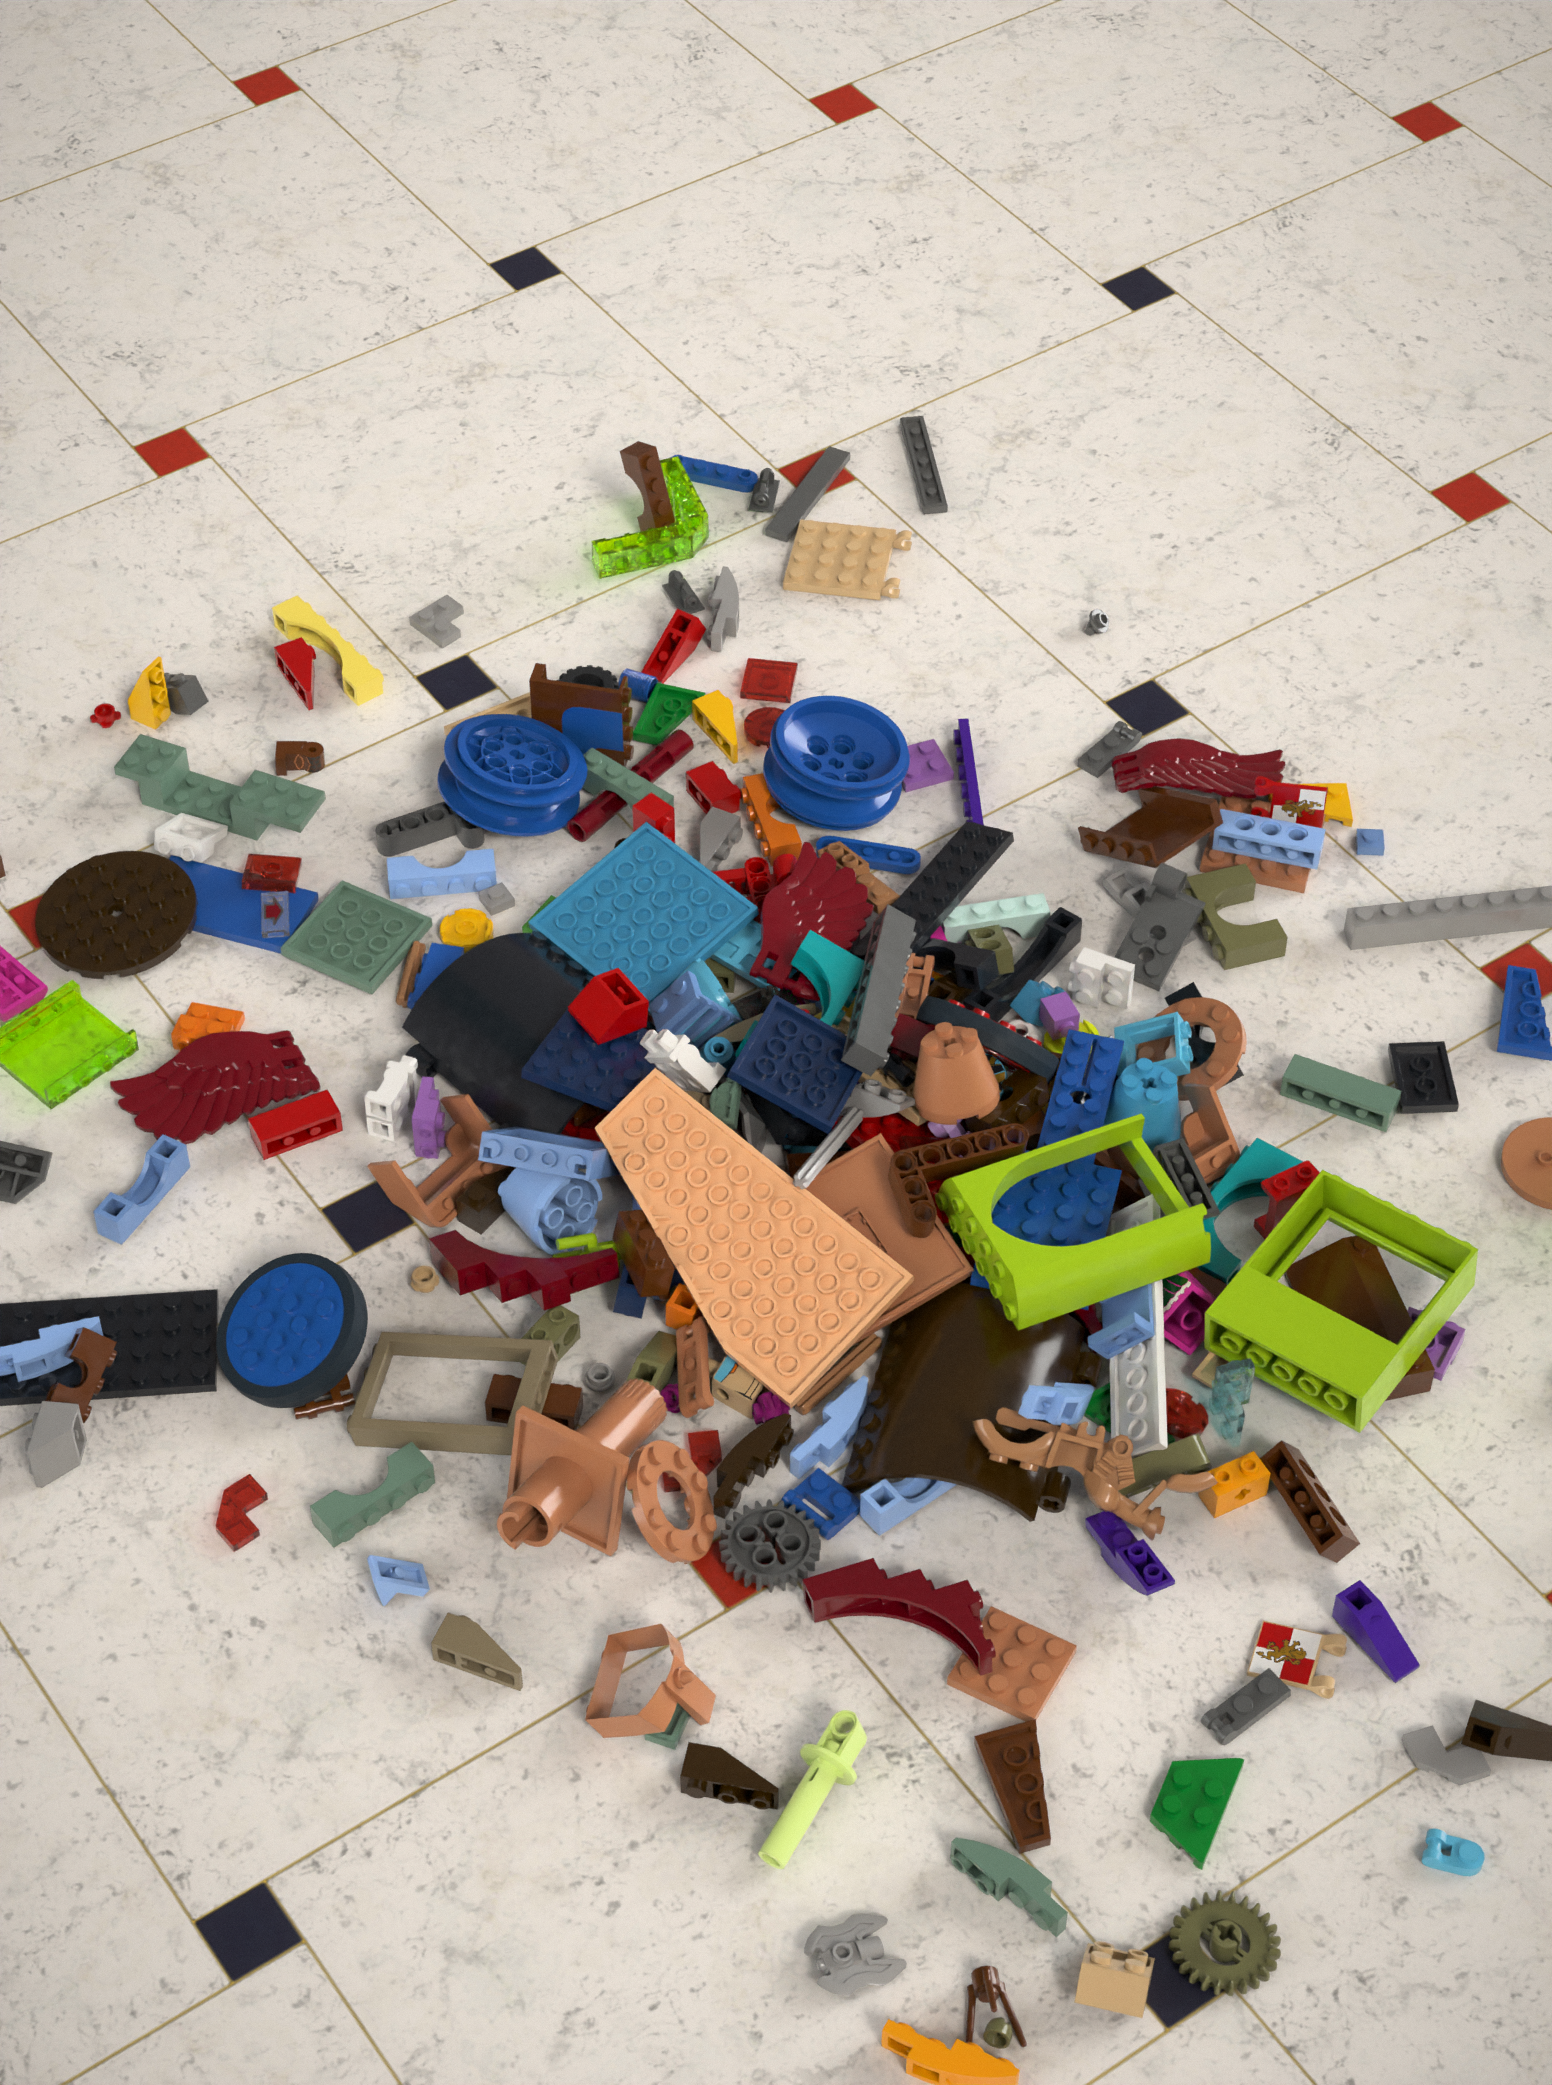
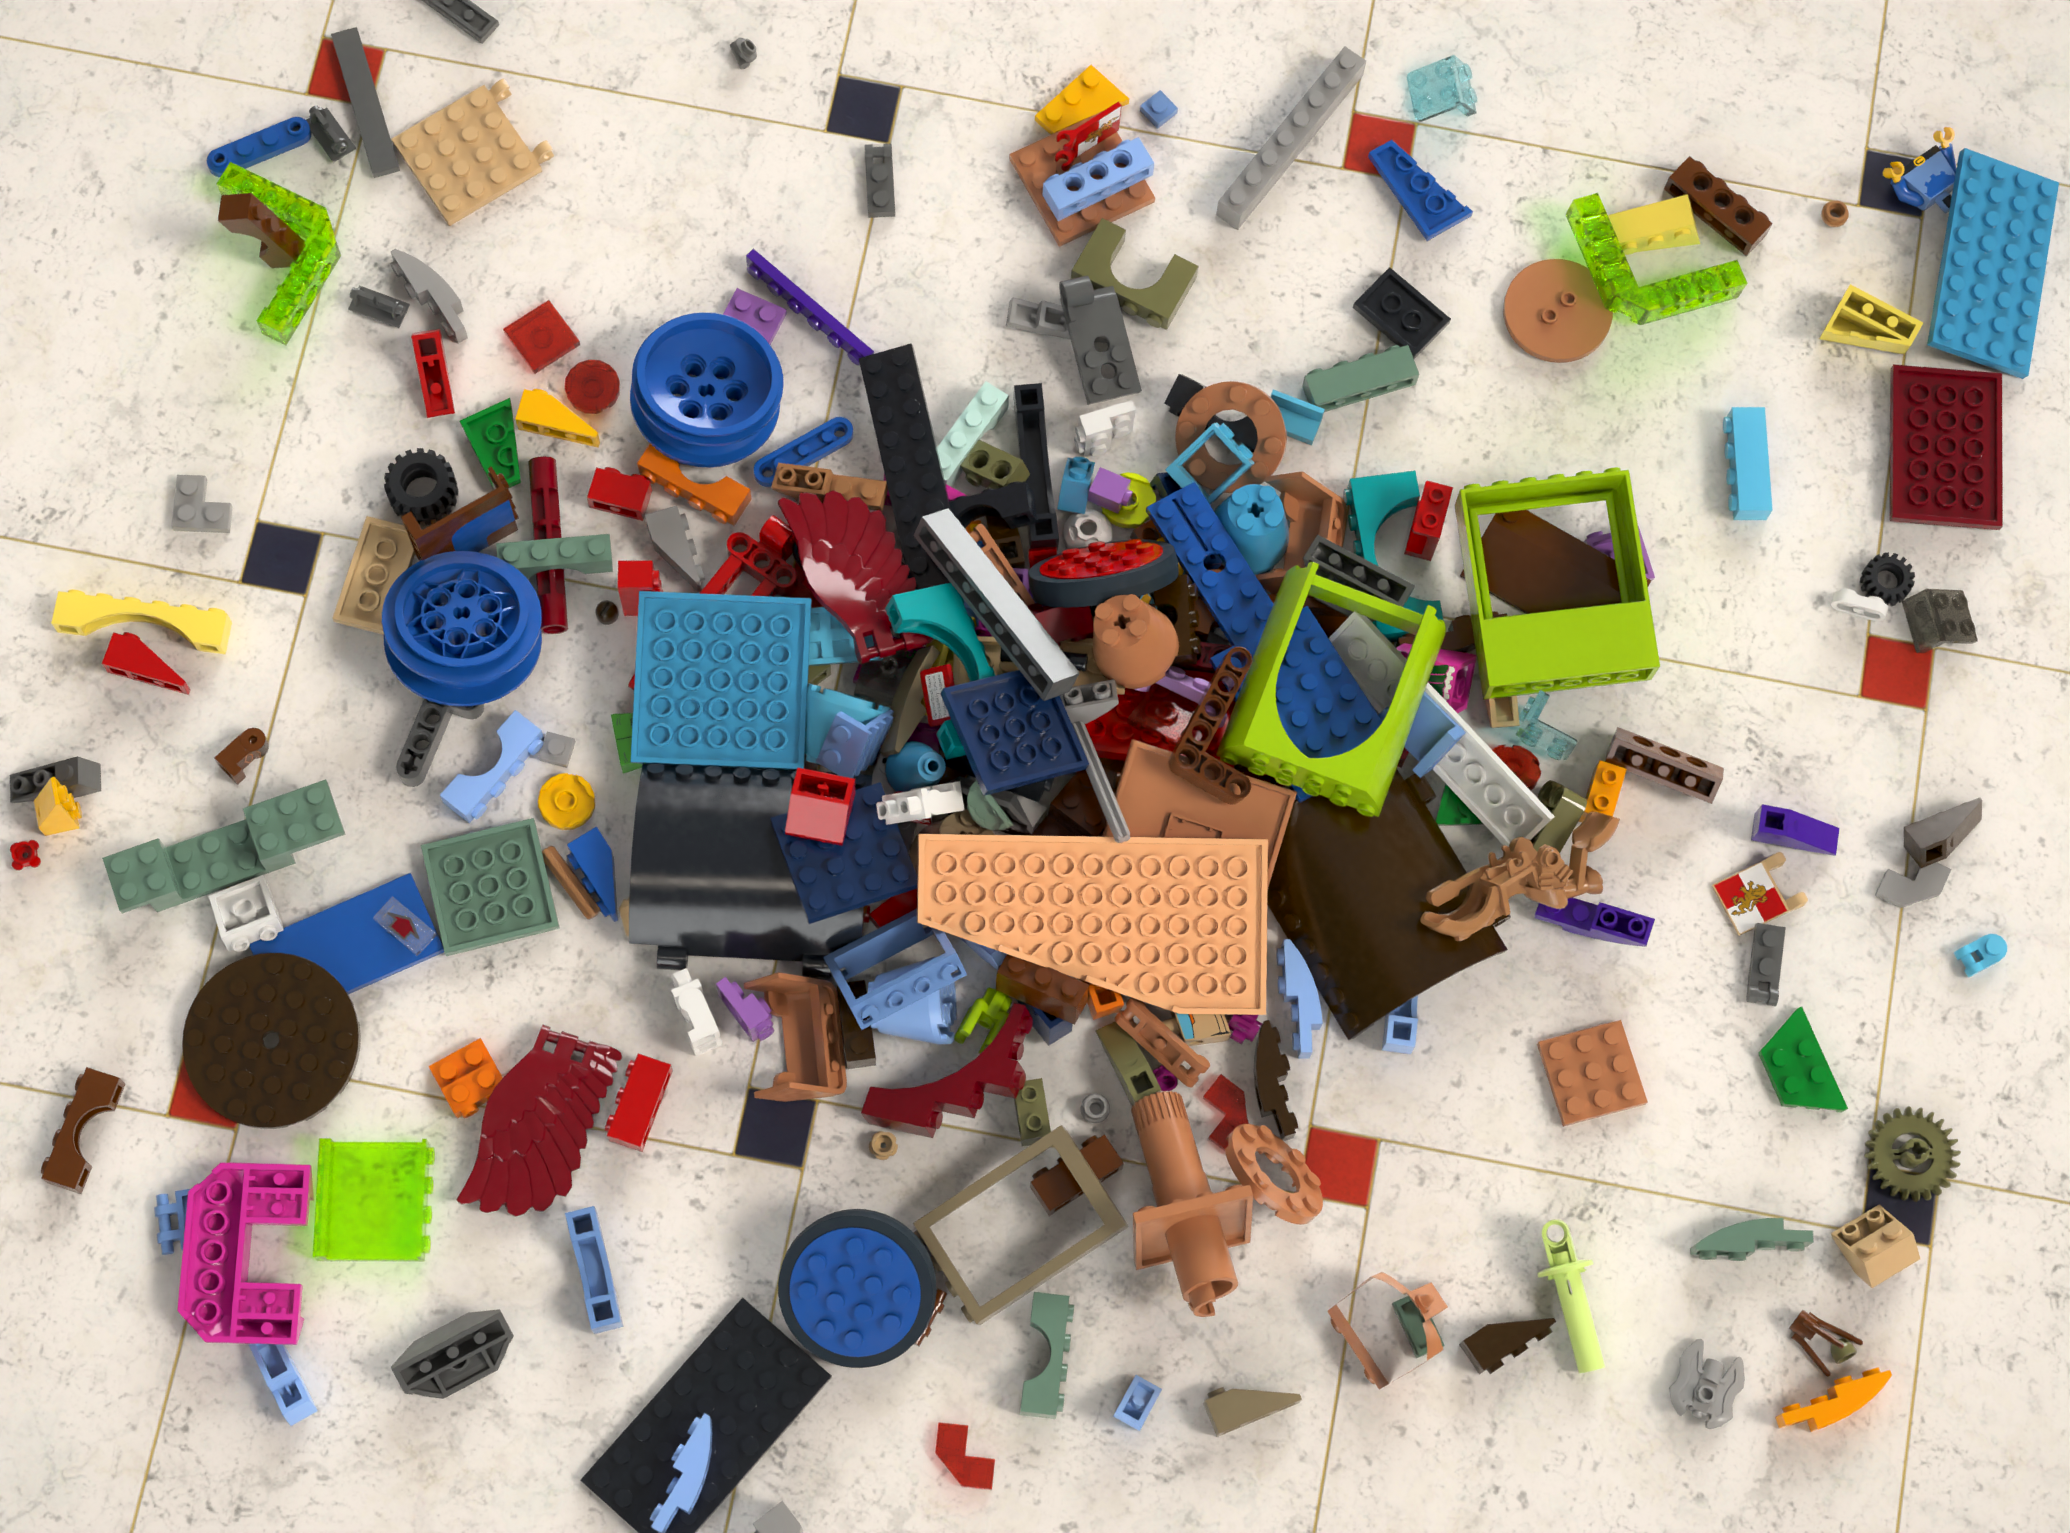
camera: 50 degrees left, 25 degrees up
(92, 1354) = (754, 1492): reddish brown arch -> none
(271, 873) = (354, 888): clear red tile -> none
(640, 683) = (446, 436): blue piece -> none
(746, 1557) = (1358, 1108): dark grey gear -> none
(827, 1497) = (1349, 1055): blue plate -> none
(867, 1591) = (1489, 1087): dark red arch -> none
(1017, 1780) = (1673, 1154): reddish brown wing -> none
(1056, 1404) = (1456, 845): light blue slope -> none
(1158, 829) = (1006, 243): reddish brown panel -> none
(1194, 766) = (973, 149): dark red animal -> none
(1261, 1080) = (1300, 417): none -> medium azure panel

